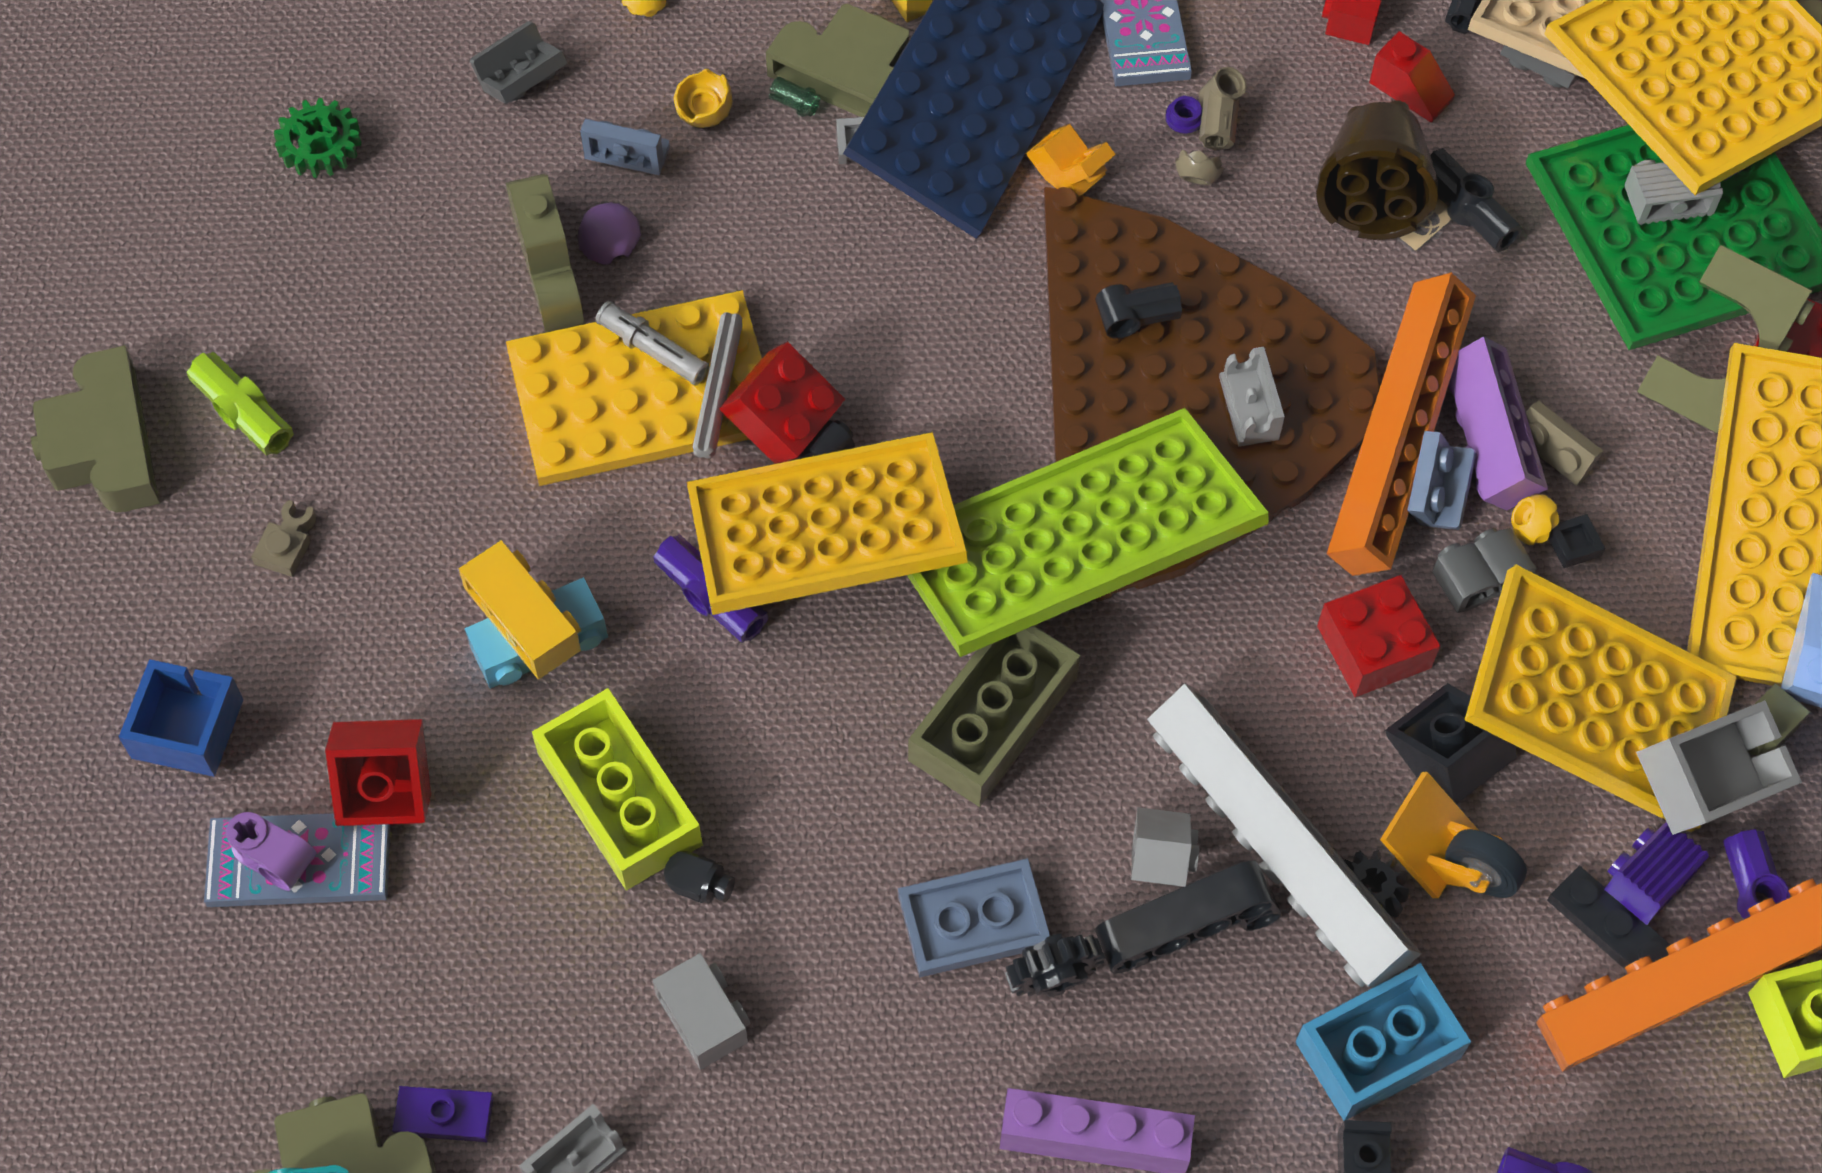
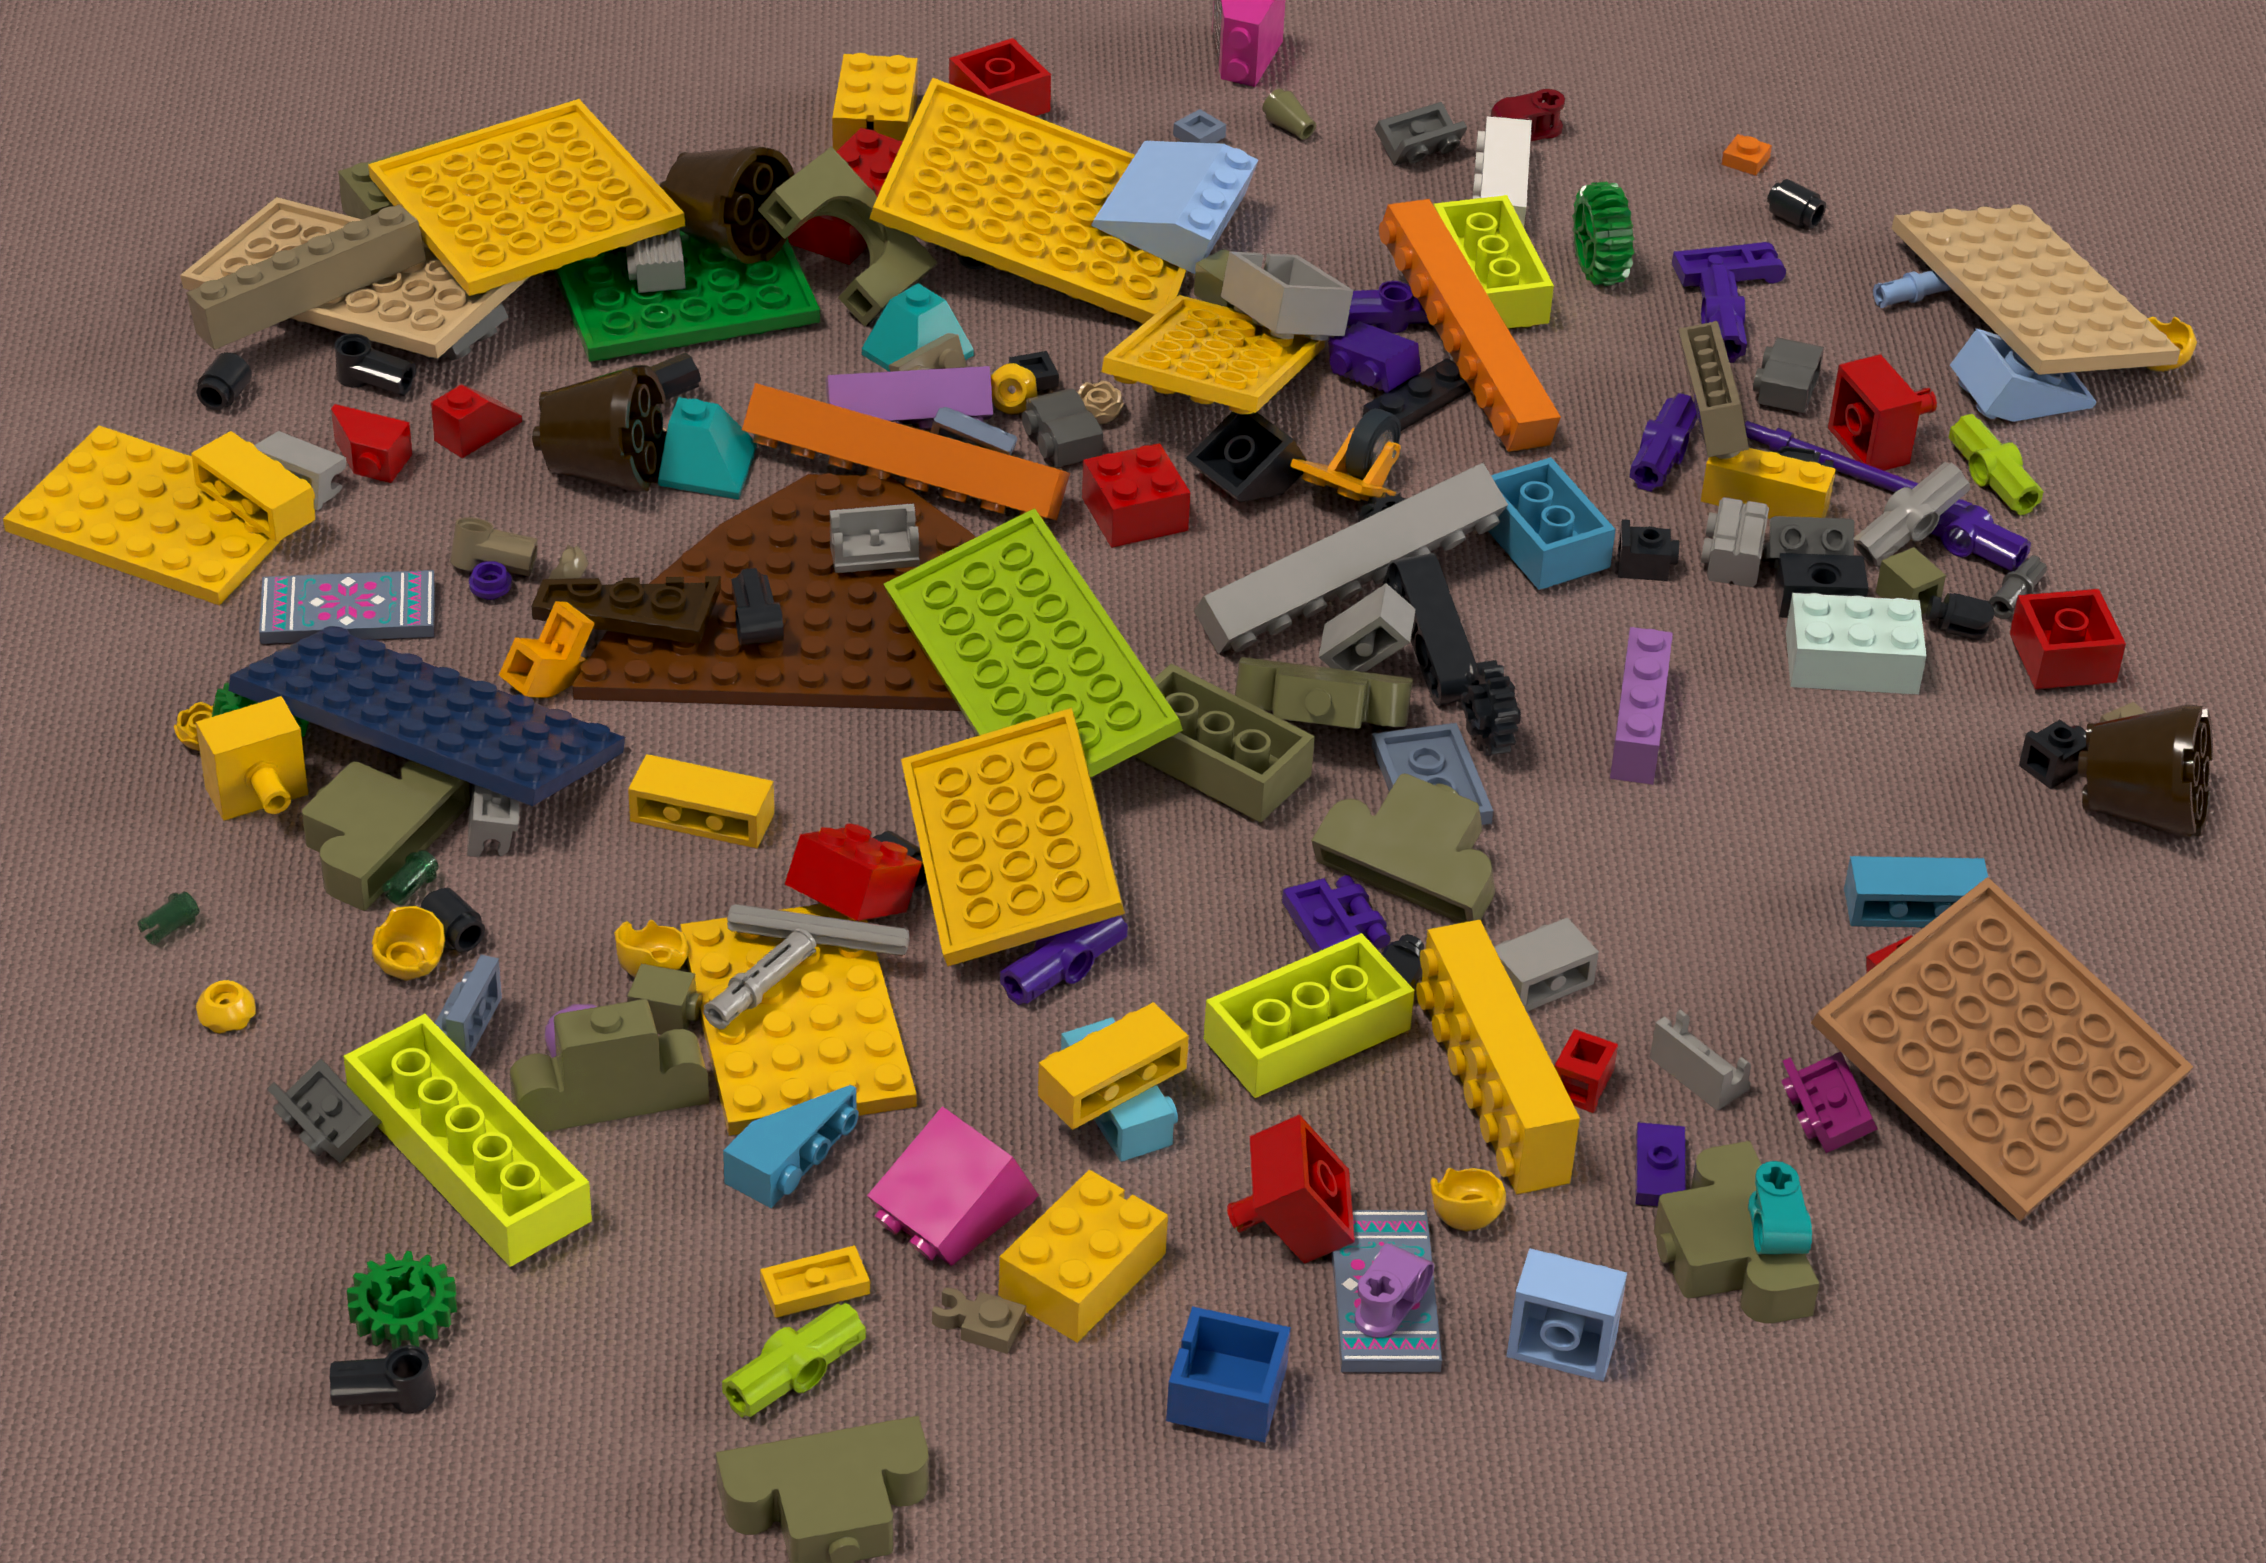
camera: 90 degrees left, 20 degrees down
(222, 999) = (1566, 1314): none -> light blue brick
(237, 135) = (398, 1379): none -> black piece
(325, 414) = (815, 1281): none -> yellow plate
(334, 607) = (1083, 1255): none -> yellow piece
(390, 925) = (1468, 1198): none -> yellow hair
(414, 507) = (950, 1189): none -> dark pink slope
(465, 376) = (783, 1146): none -> dark azure slope
(472, 156) = (469, 1140): none -> neon yellow brick
(550, 1029) = (1586, 1068): none -> red brick
(551, 951) = (1498, 1057): none -> yellow brick
(643, 281) = (669, 994): none -> olive brick
(703, 265) = (650, 946): none -> yellow hair
(738, 126) = (461, 922): none -> black brick
(763, 812) = (1322, 916): none -> dark purple plate
(848, 890) = (1413, 848): none -> olive brick
(897, 294) = (701, 801): none -> yellow brick
(1065, 802) = (1324, 693): none -> olive brick
(1135, 222) = (653, 610): none -> dark brown wing
(1388, 260) = (705, 450): none -> teal slope
(1622, 426) = (911, 323): none -> teal slope
(1749, 212) = (723, 196): none -> dark brown cone

